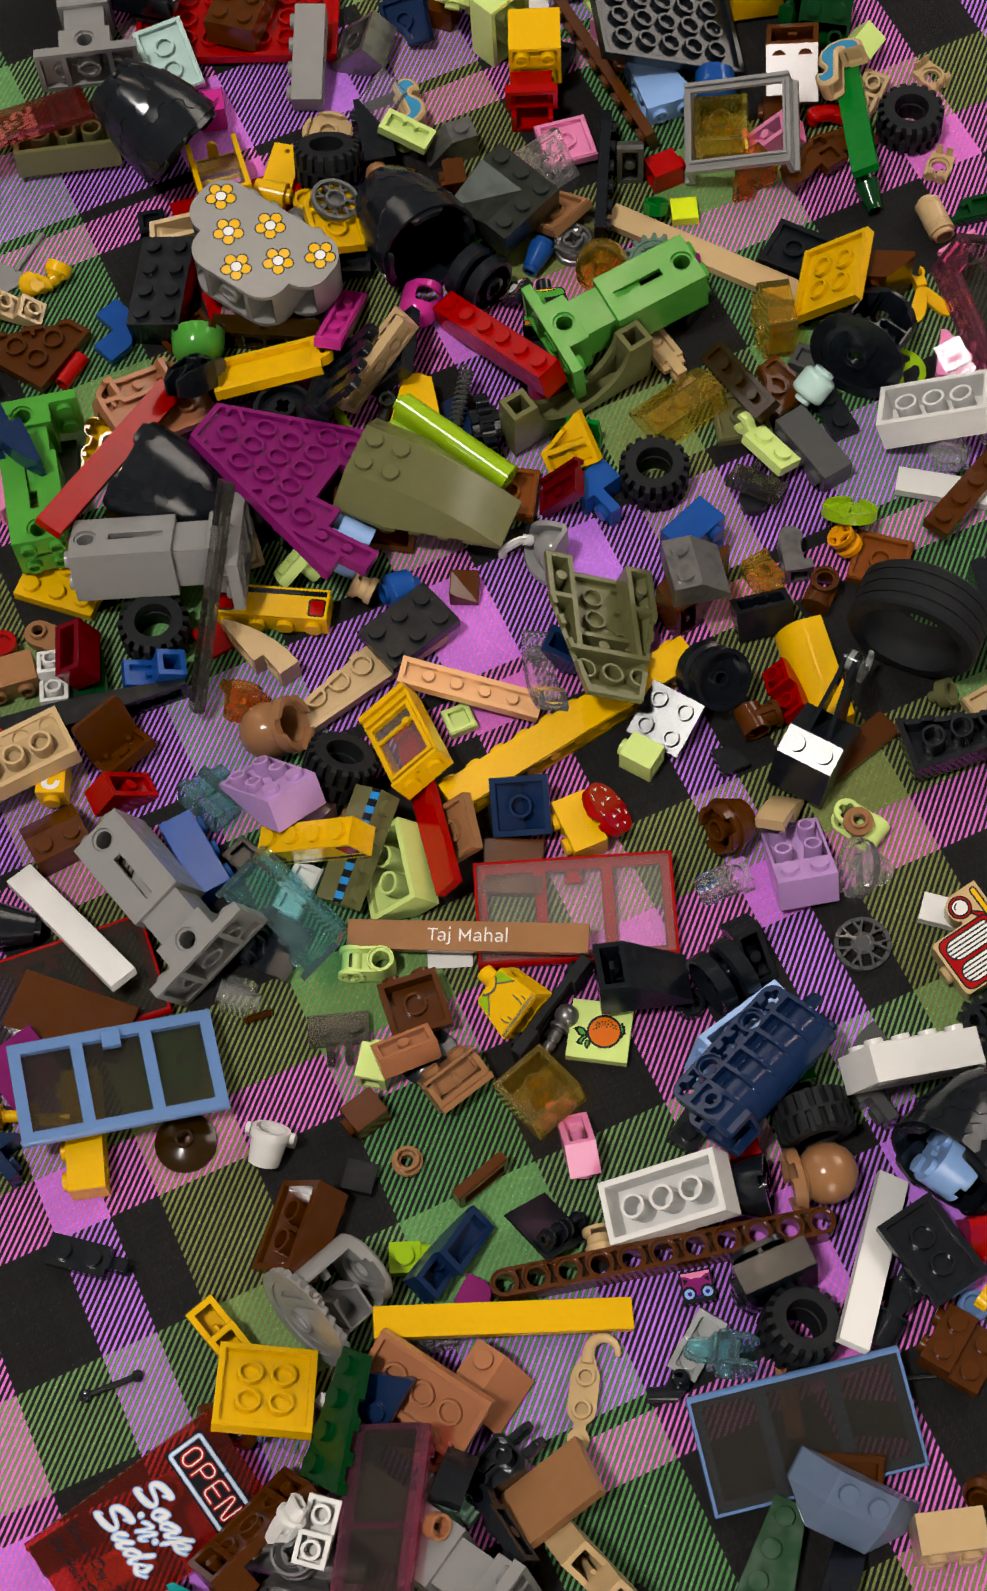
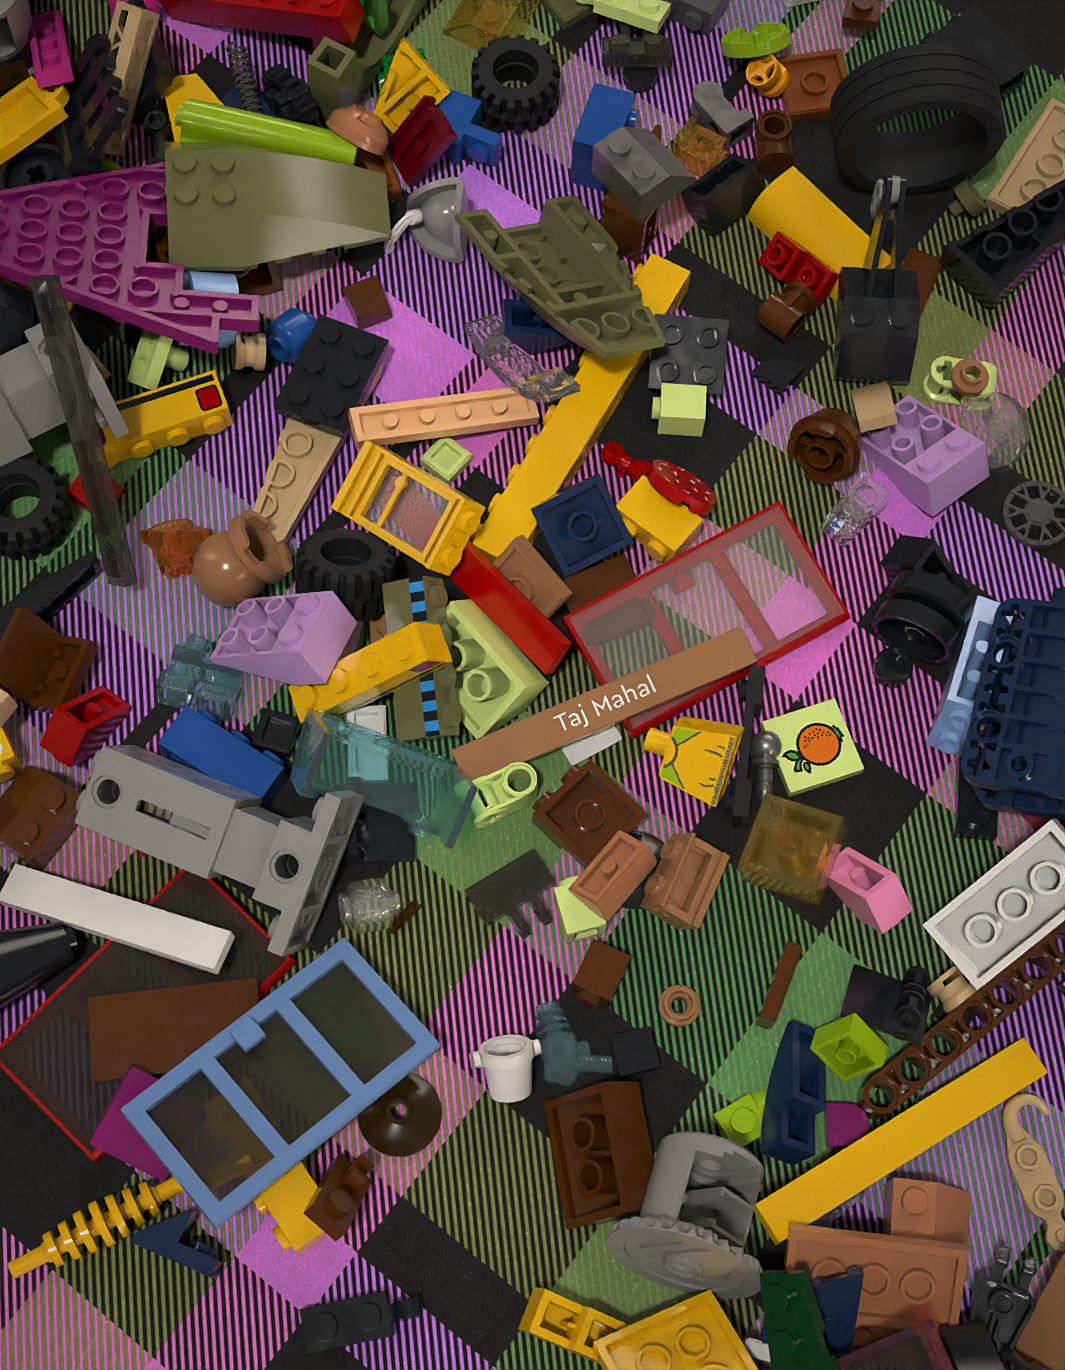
camera: 35 degrees left, 5 degrees up
(114, 1170) = (339, 1195): none -> reddish brown plate
(164, 666) = (55, 548): blue brick -> none
(262, 651) = (168, 478): tan slope -> none
(311, 1152) = (560, 1051): none -> clear light blue piece
(501, 1241) = (849, 1047): none -> lime piece
(520, 462) = (360, 128): none -> nougat piece
(578, 768) = (615, 454): none -> red piece
(639, 977) = (826, 664): black slope -> none
(713, 675) = (718, 280): black wheel -> none

